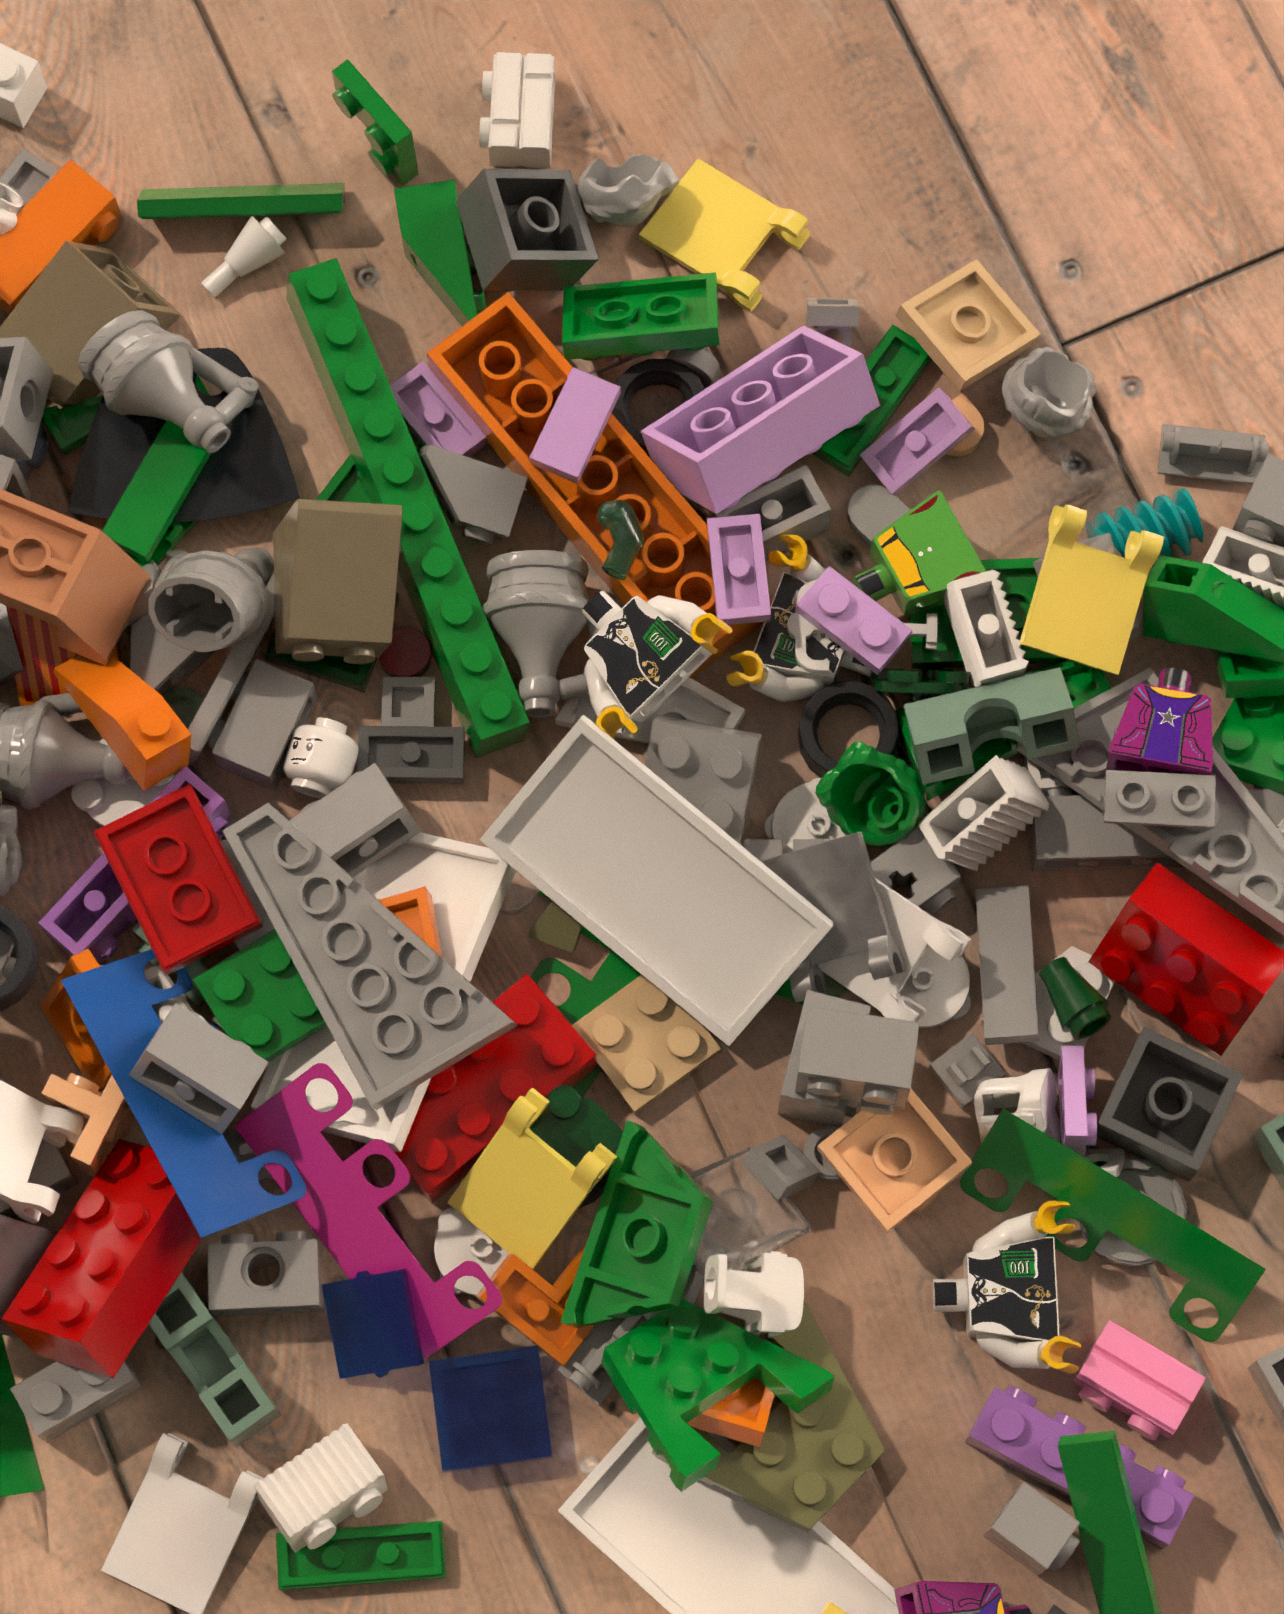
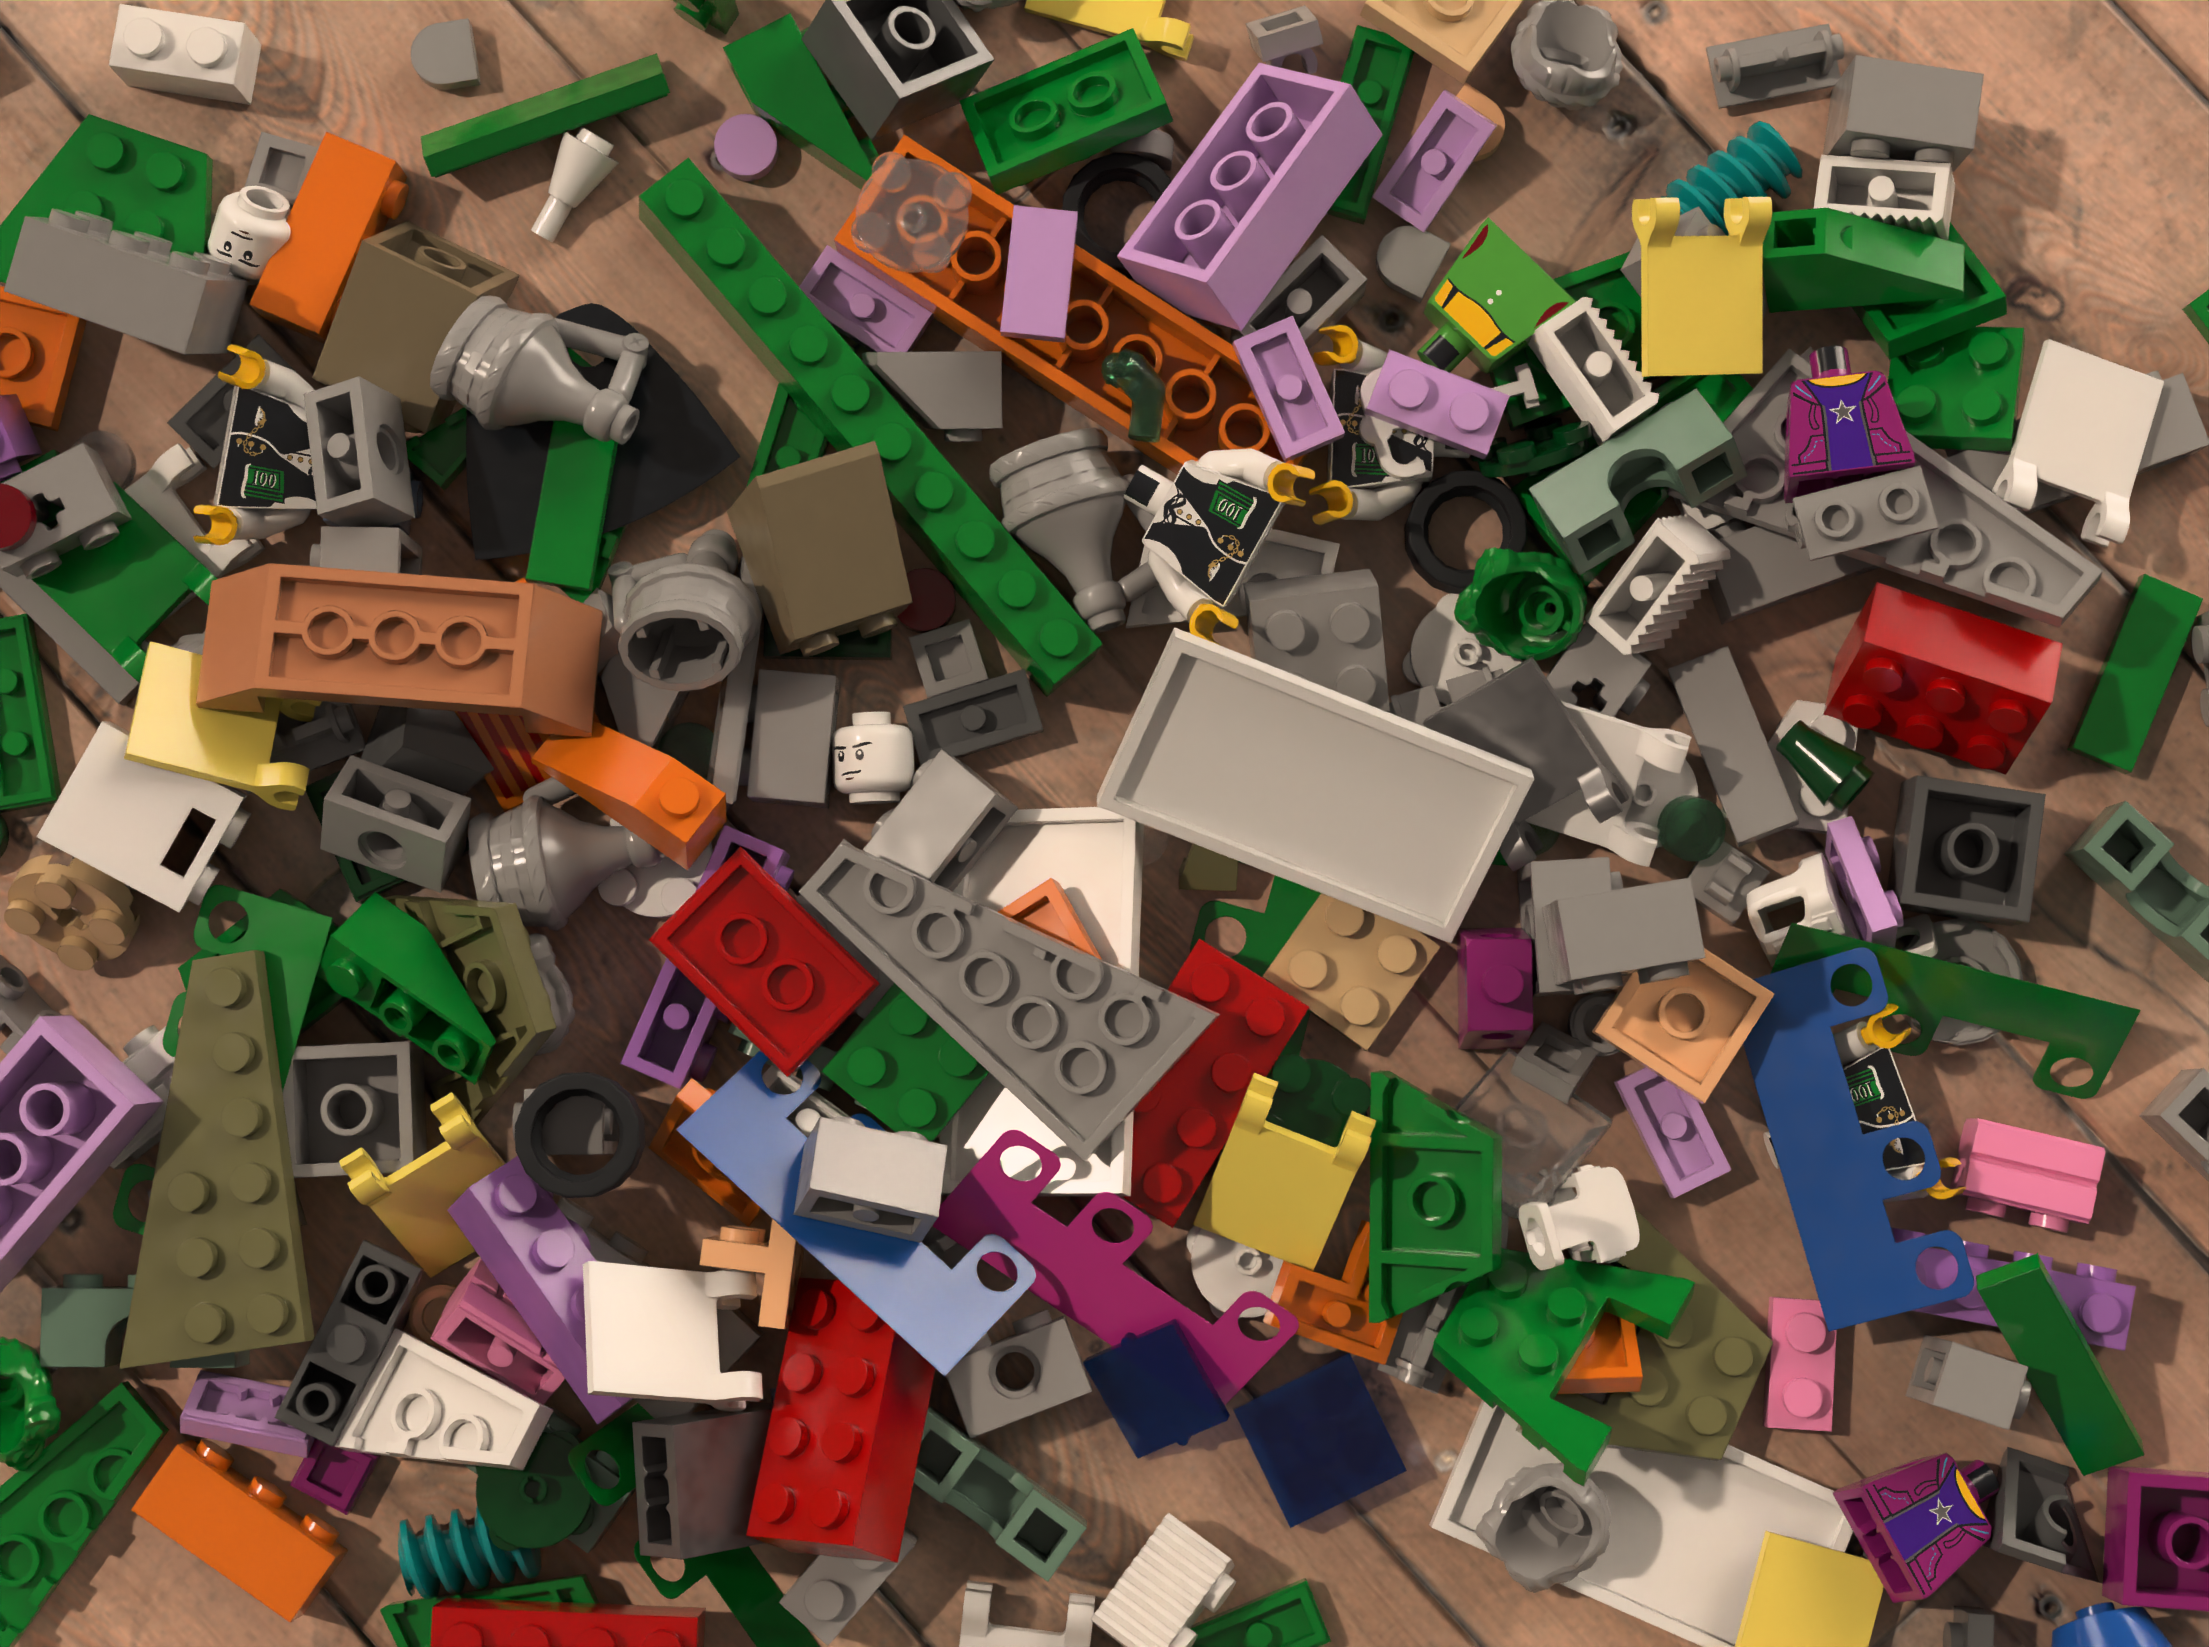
camera: 20 degrees left, 10 degrees up
(184, 136) = (446, 55): none -> light grey tile
(388, 272) = (746, 147): none -> lavender tile
(491, 349) = (912, 214): none -> clear piece
(649, 1535) = (1546, 1526): none -> light grey hair
(749, 1094) = (1494, 988): none -> magenta torso
(859, 1255) = (1672, 1131): none -> lavender plate
(903, 1479) = (1799, 1366): none -> bright pink plate
(952, 1017) = (1691, 828): none -> clear green tile
(973, 1308) = (1828, 1163): none -> blue piece

